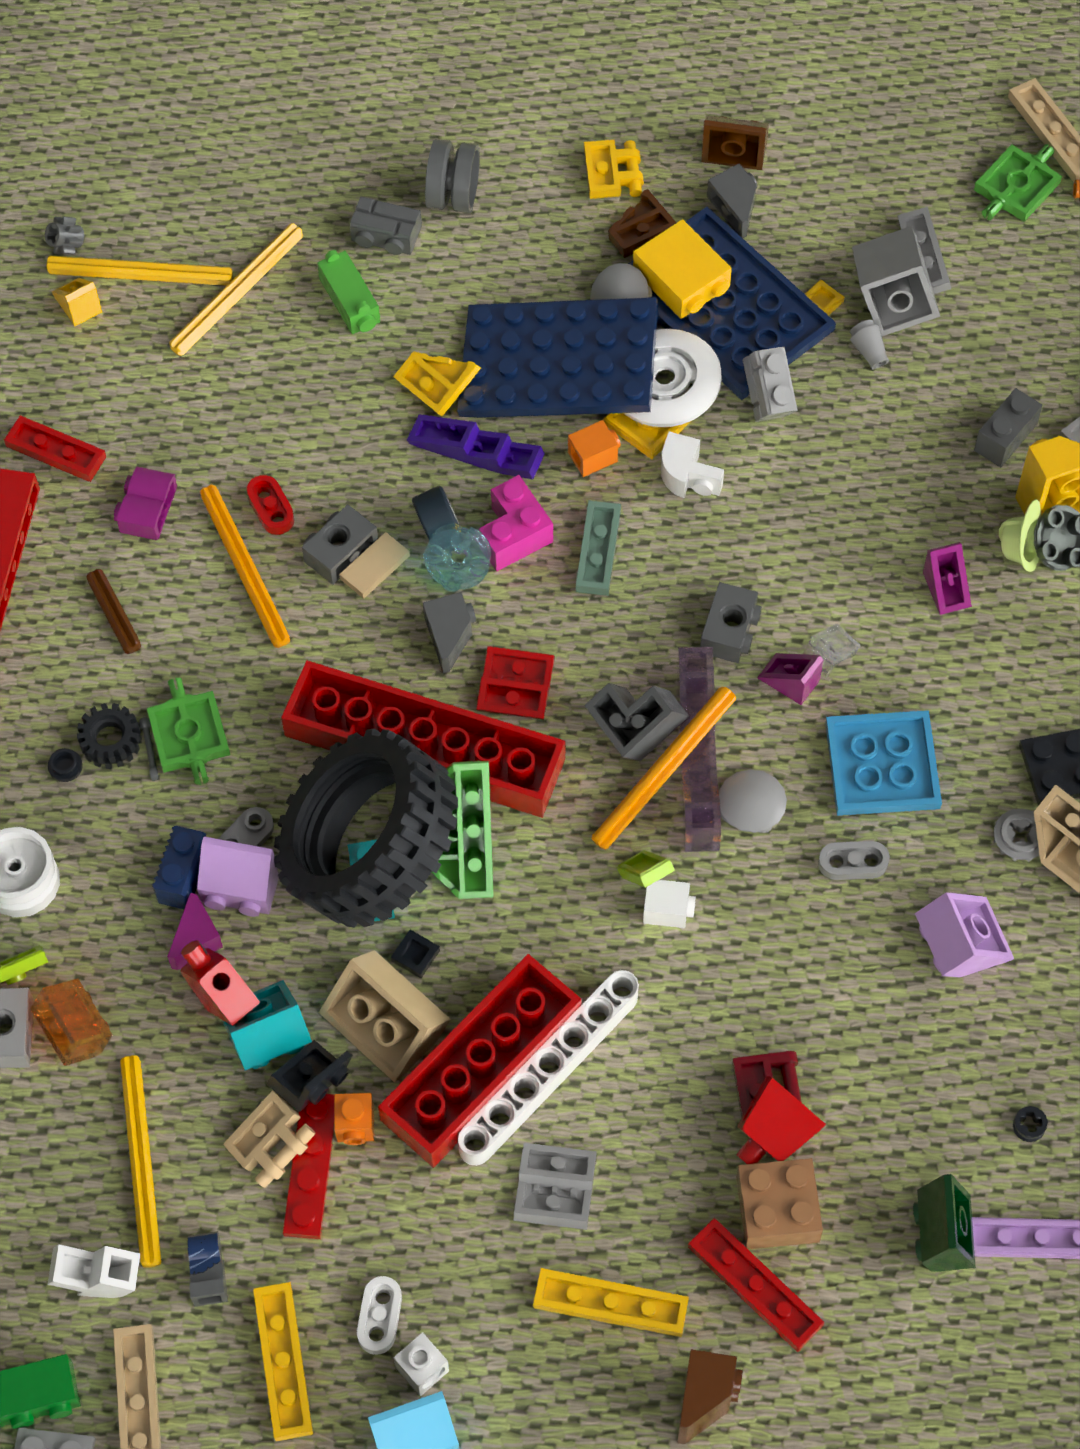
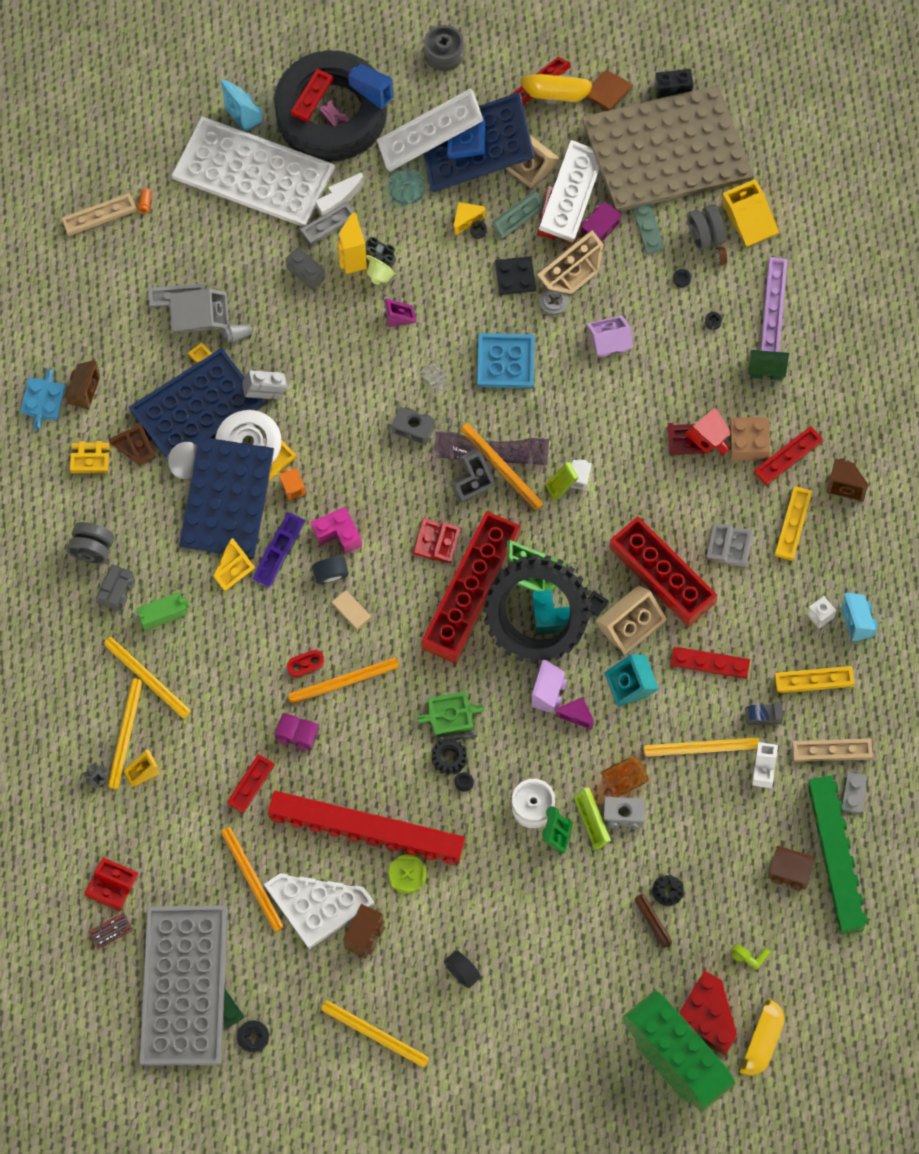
camera: 85 degrees left, 5 degrees up
(113, 611) = (366, 753): reddish brown axle -> none
(179, 867) = (537, 718): dark blue brick -> none
(217, 983) = (611, 701): torso -> none
(244, 833) = (517, 687): light grey plate -> none
(262, 1131) = (693, 682): tan plate -> none
(309, 1075) = (666, 655): black bracket -> none
(345, 527) = (335, 616): dark grey brick -> none
(354, 1118) = (690, 636): orange brick -> none
(379, 1316) = (793, 631): white plate -> none
(449, 627) = (401, 571): dark grey slope -> none
(461, 540) = (363, 552): clear light blue plate -> none
(544, 1083) = (666, 532): white beam -> none
(598, 548) = (355, 489): sand green plate -> none
(682, 269) = (178, 421): yellow brick -> none
(683, 471) = (309, 441): white brick -> none
(707, 93) = (42, 399): none -> dark azure plate
(734, 197) = (125, 390): dark grey slope -> none
(752, 801) = (520, 426): light grey dish -> none
(793, 674) = (449, 397): magenta slope -> none
(852, 859) = (562, 383): light grey plate -> none
(1018, 182) = (134, 239): bright green plate -> none

